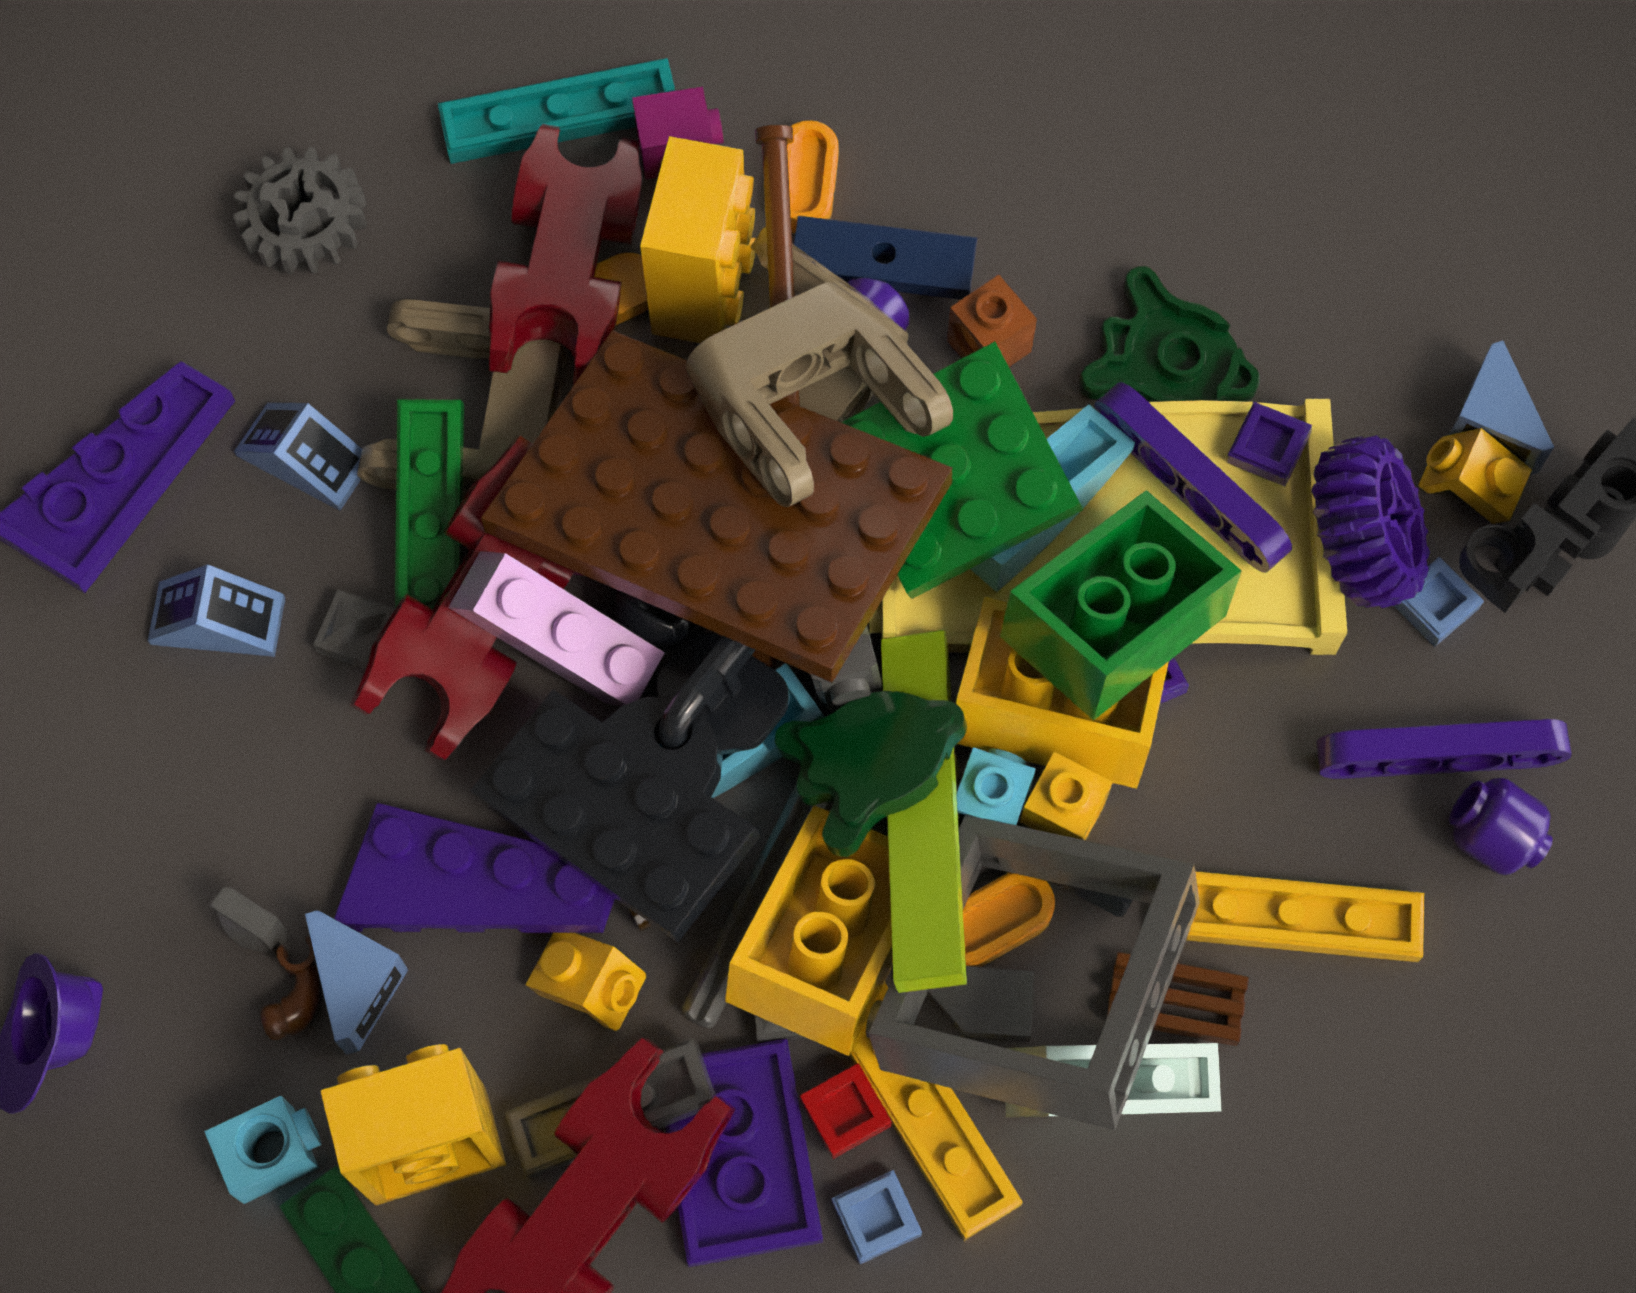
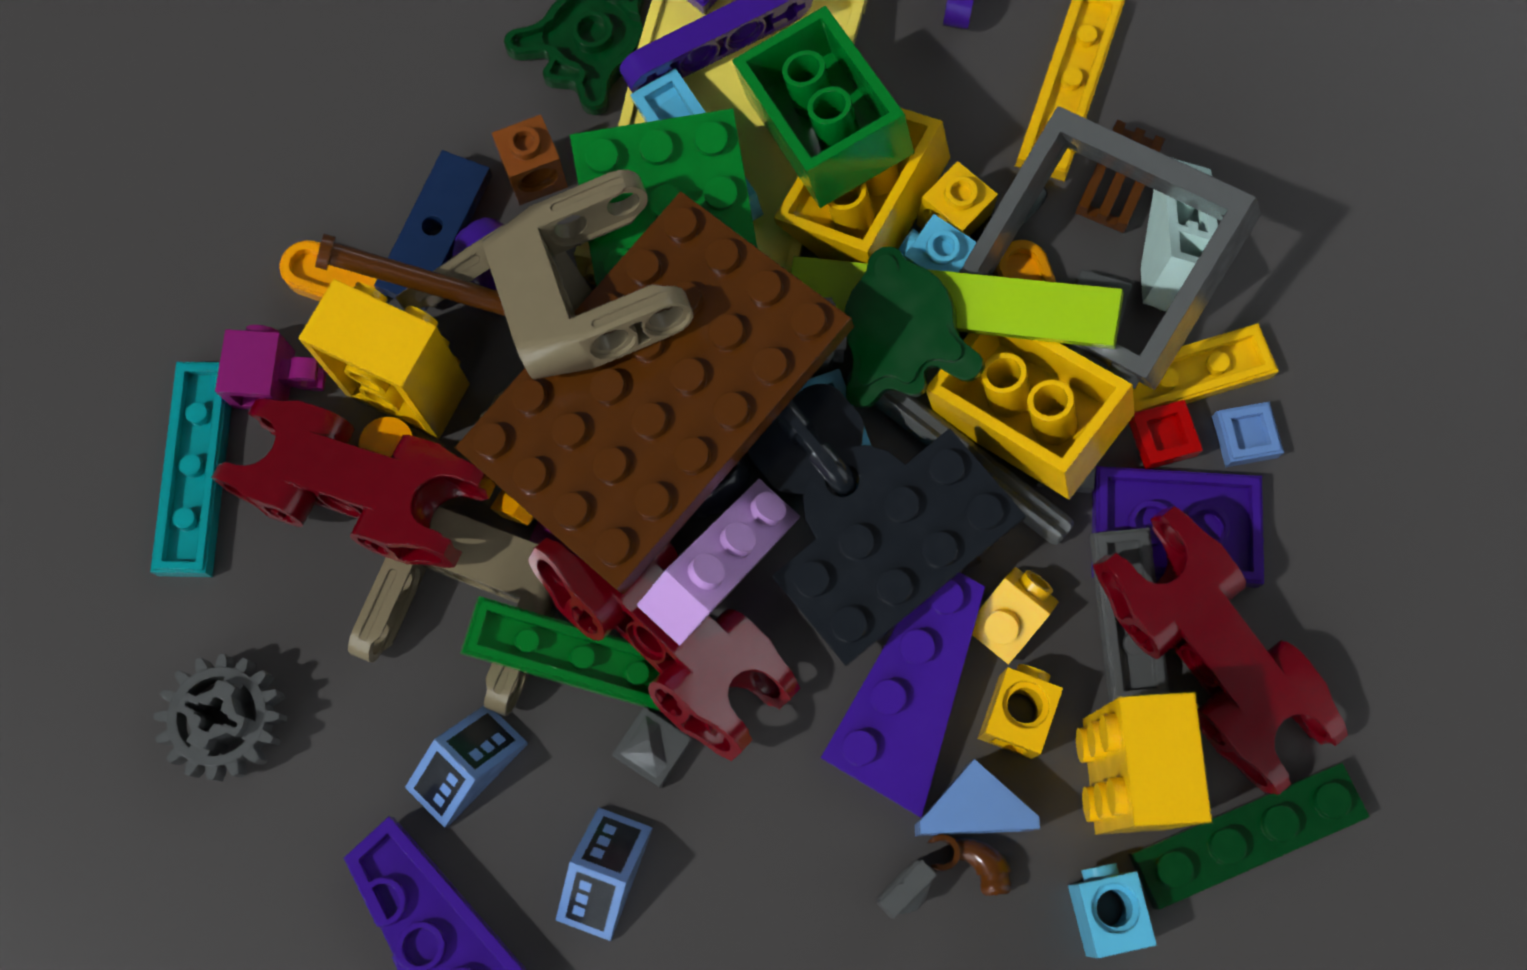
camera: 75 degrees left, 5 degrees up
(447, 987) = (1006, 732): none -> yellow brick

